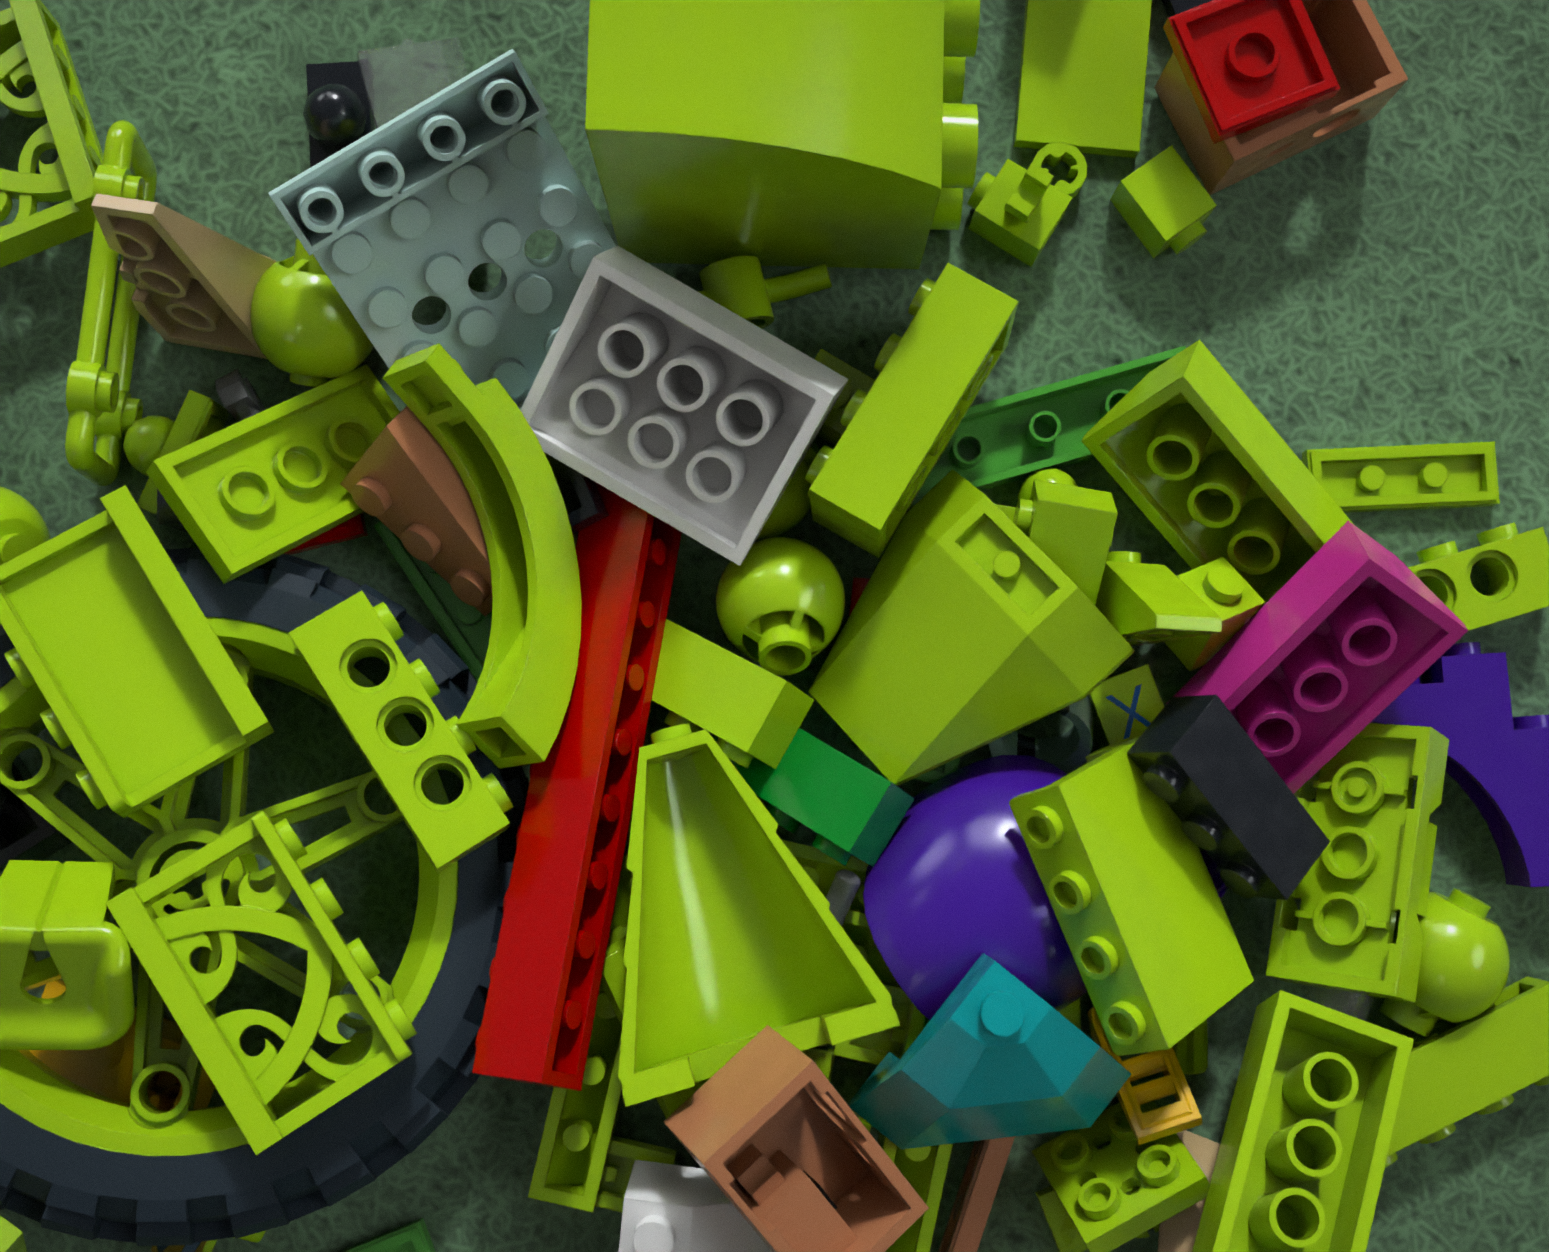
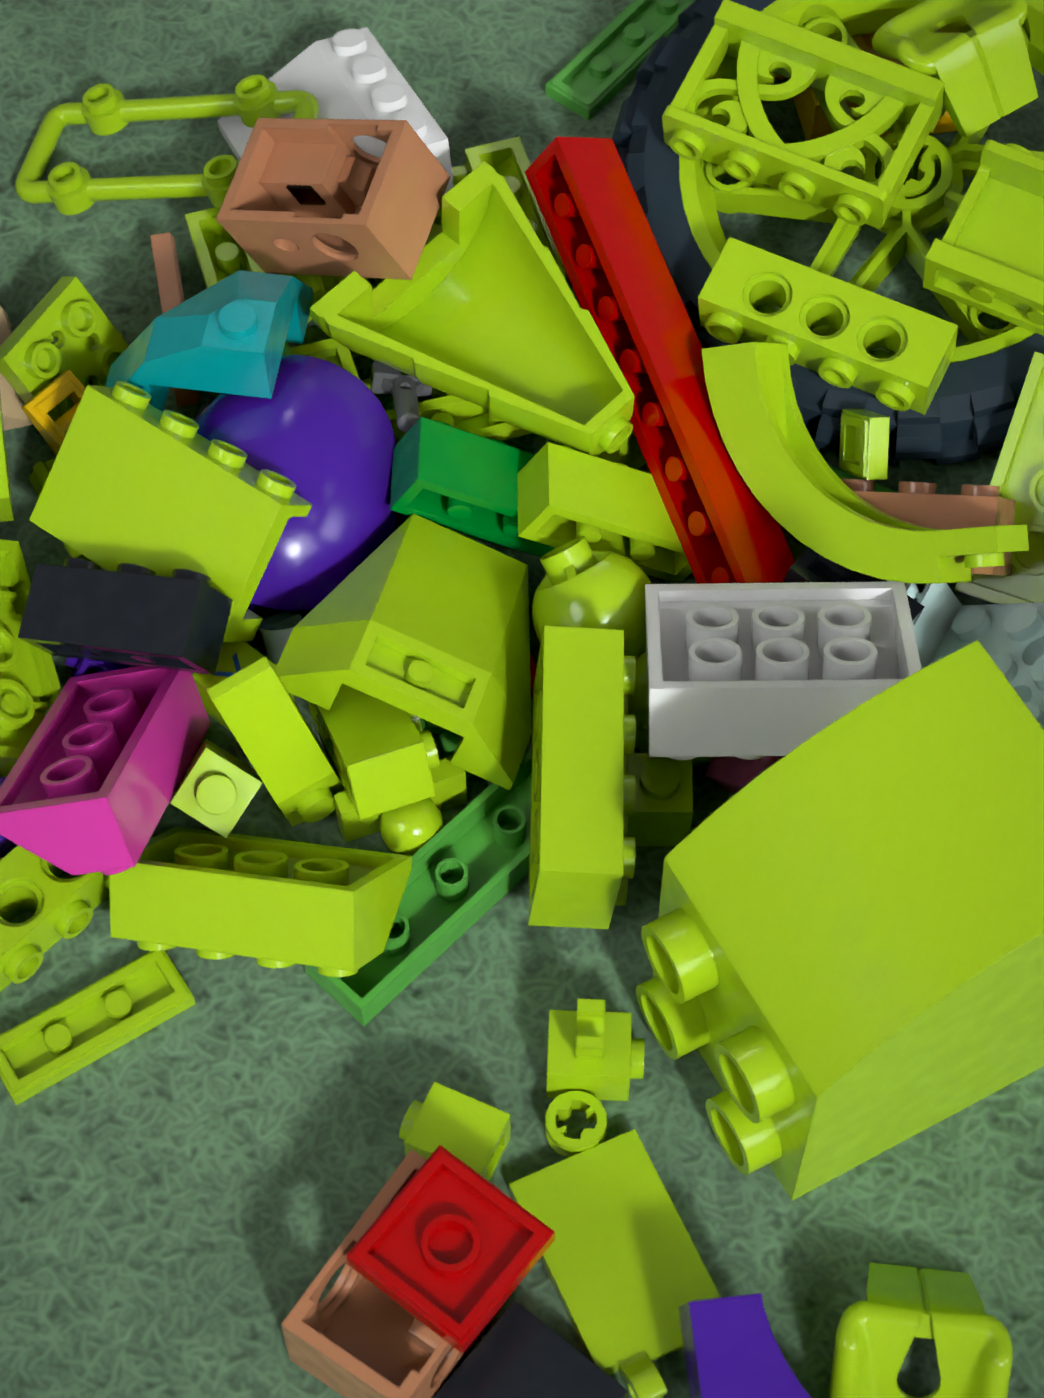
camera: 150 degrees right, 25 degrees down
(439, 610) = (864, 444): none -> lime tile

